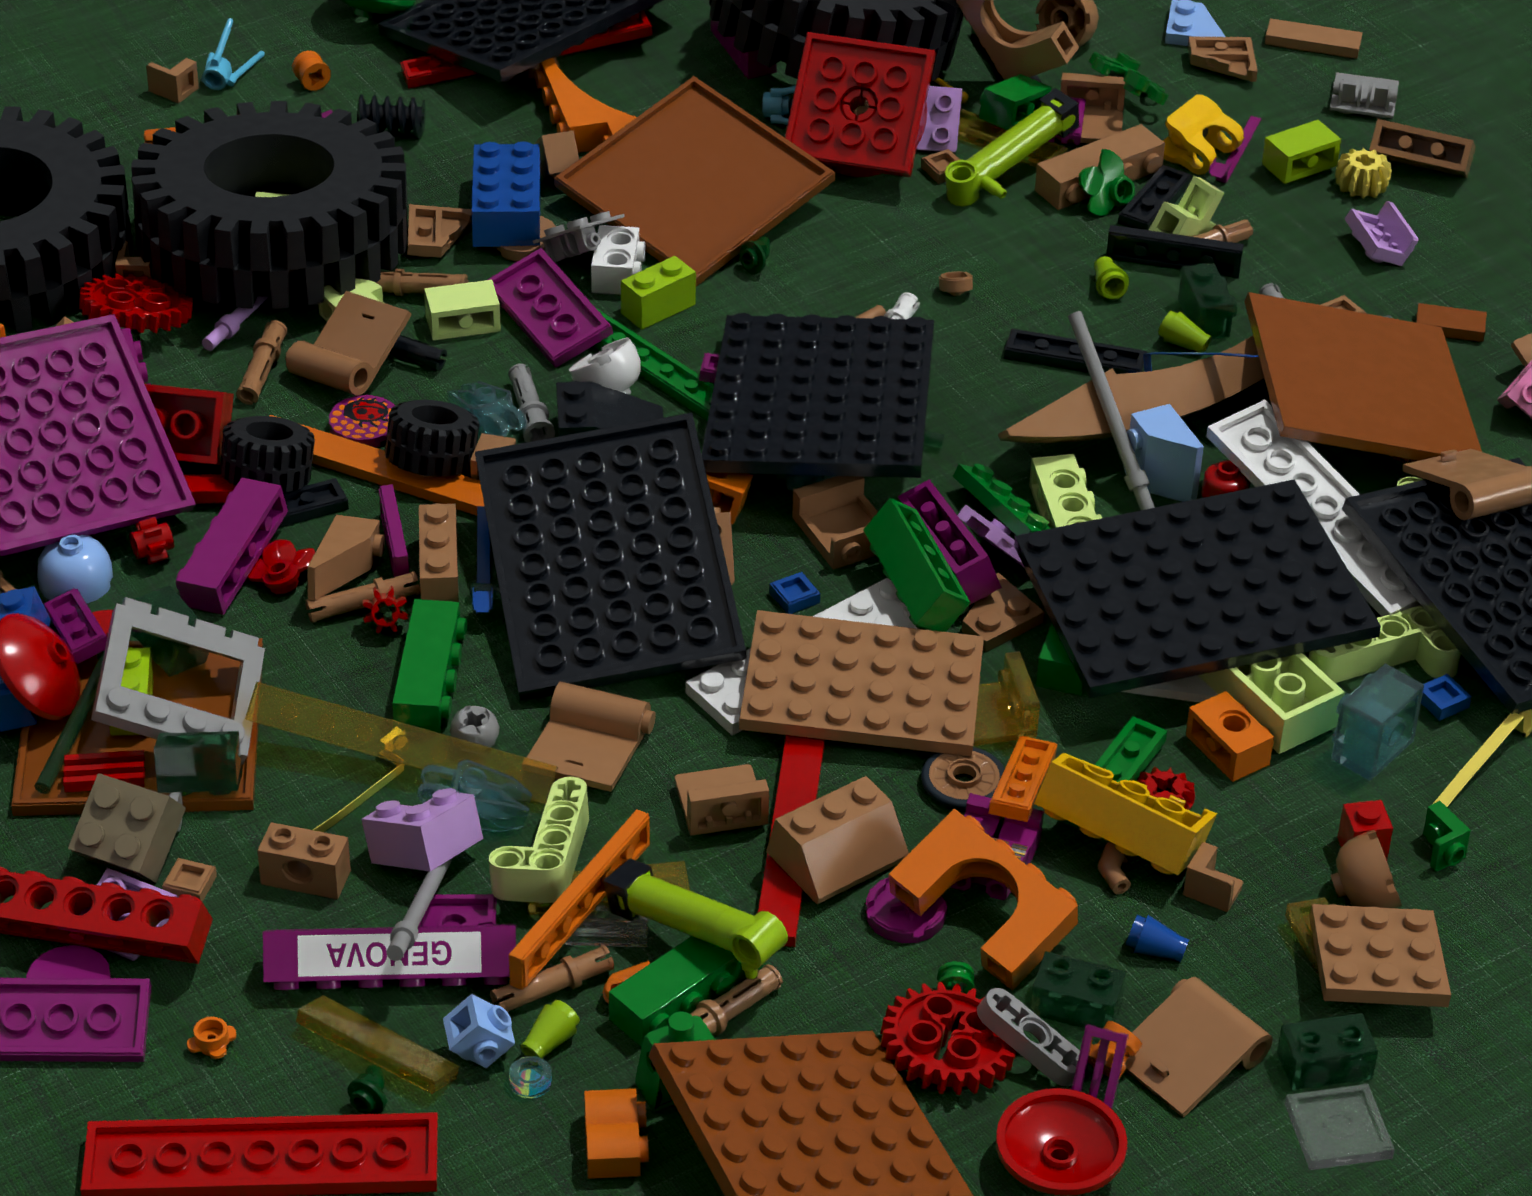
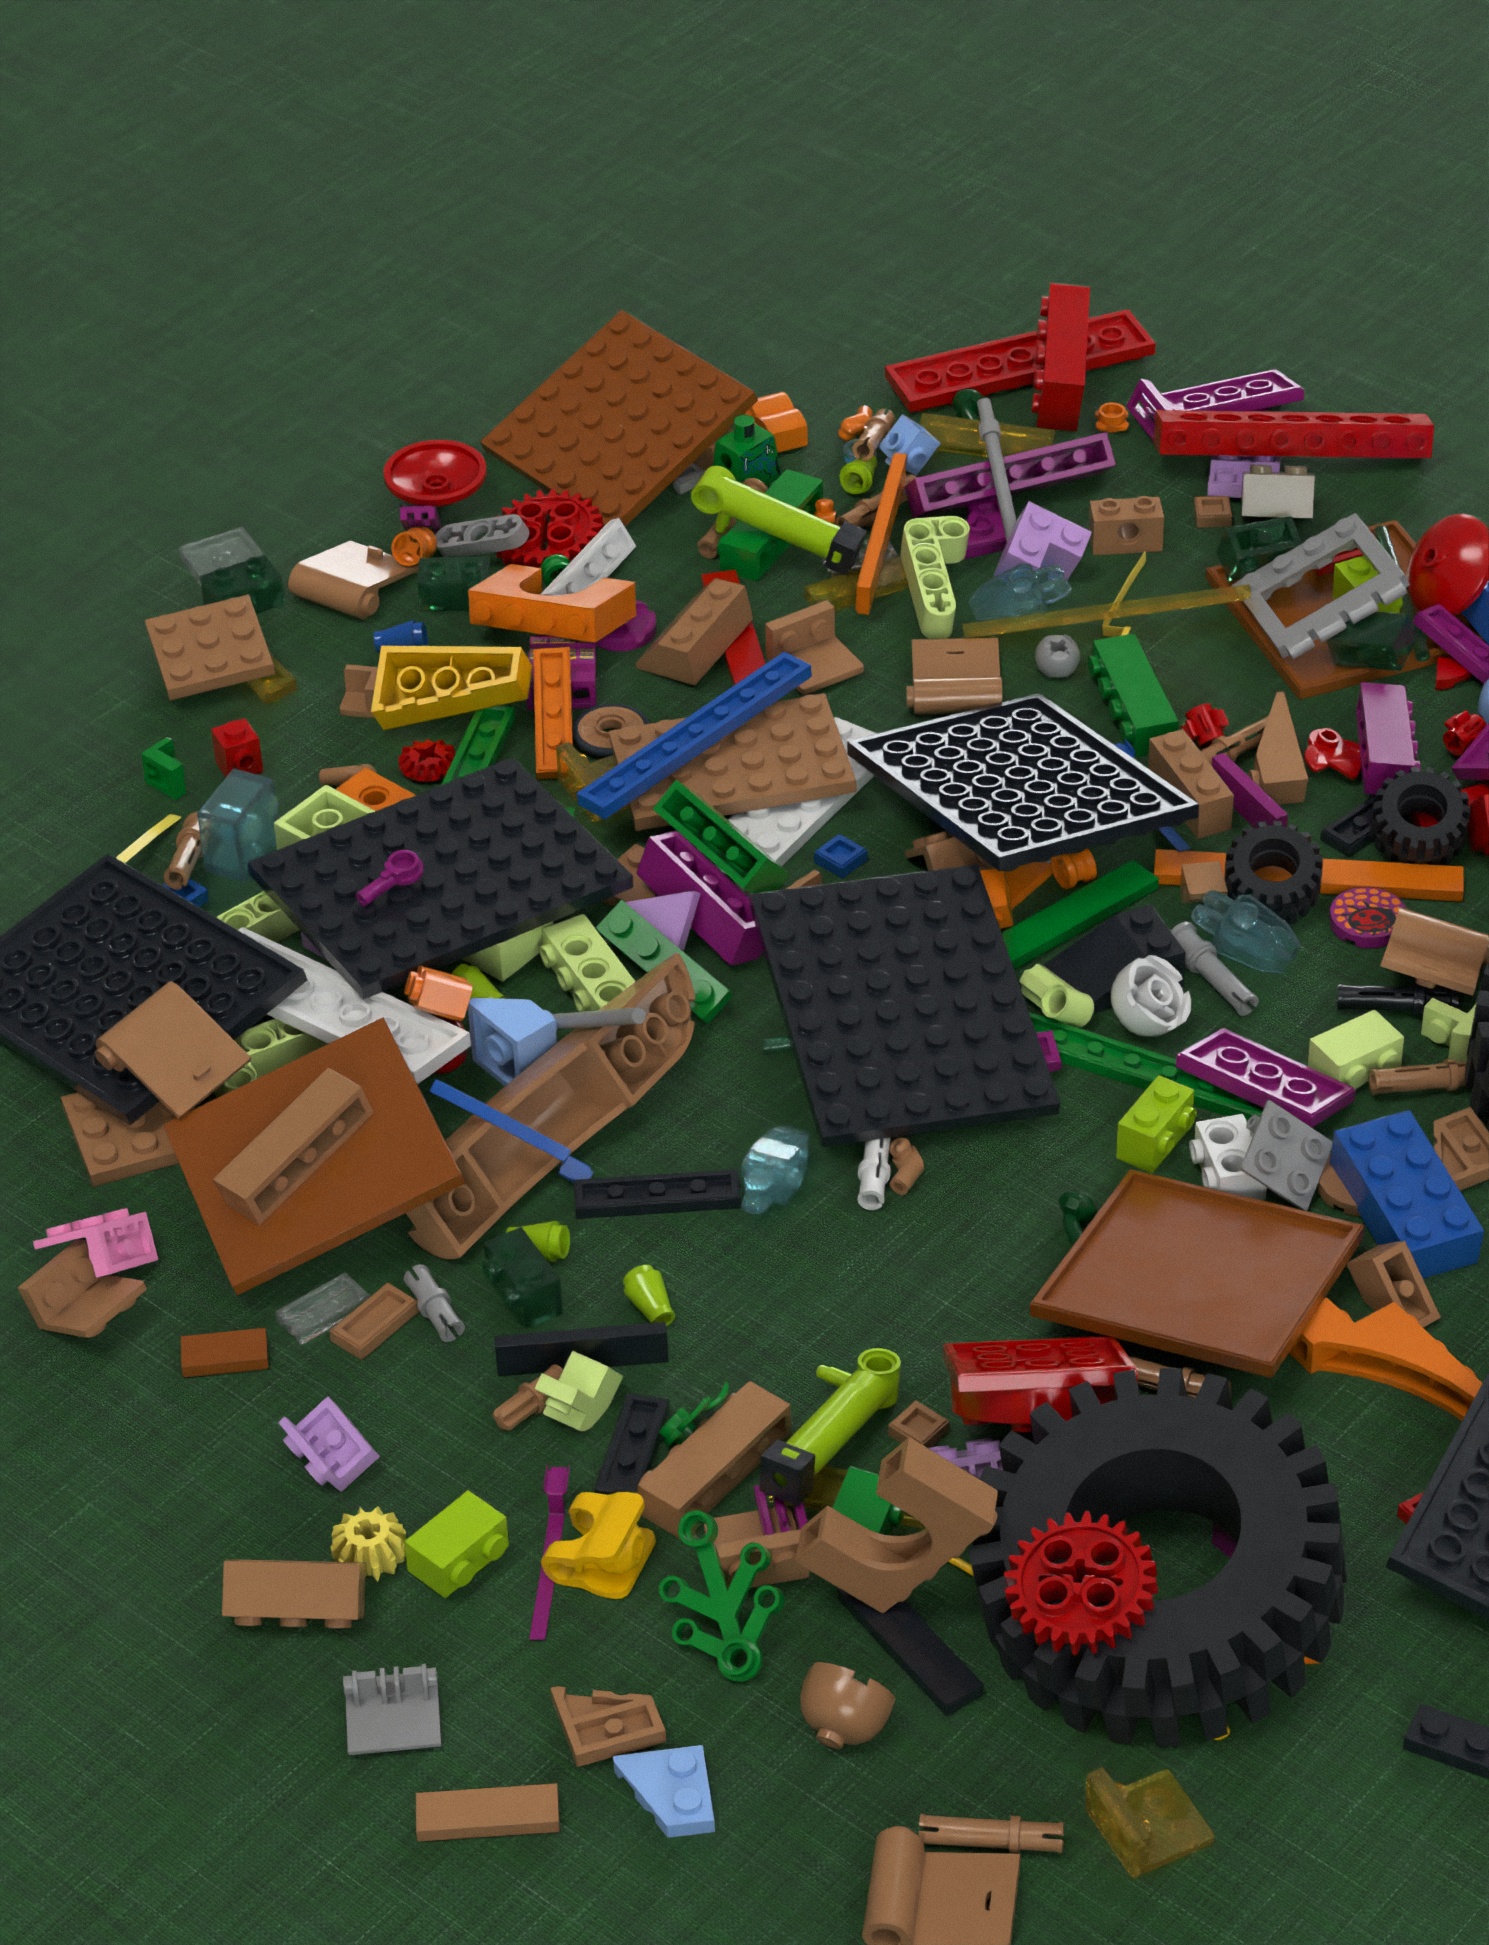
camera: 165 degrees right, 0 degrees up
(165, 1018) = (1151, 400): none -> magenta tile
(234, 1068) = (1061, 357): none -> red brick
(501, 1075) = (873, 434): none -> medium nougat pin
(509, 1107) = (855, 424): none -> orange arm
(675, 396) = (1056, 996): none -> yellowish green piece
(893, 675) = (693, 735): none -> blue plate
(919, 968) = (595, 561): none -> white tile
(955, 282) = (828, 1243): medium nougat tile -> none
(976, 330) = (774, 1168): none -> clear light blue hinge
(1224, 461) = (438, 993): none -> orange brick
(1238, 553) = (400, 869): none -> magenta plate
(1249, 784) = (339, 775): none -> medium nougat arm
(1365, 873) = (226, 700): medium nougat cylinder -> none
(1379, 359) = (293, 1146): none -> medium nougat brick
(1427, 735) = (187, 853): none -> medium nougat pin

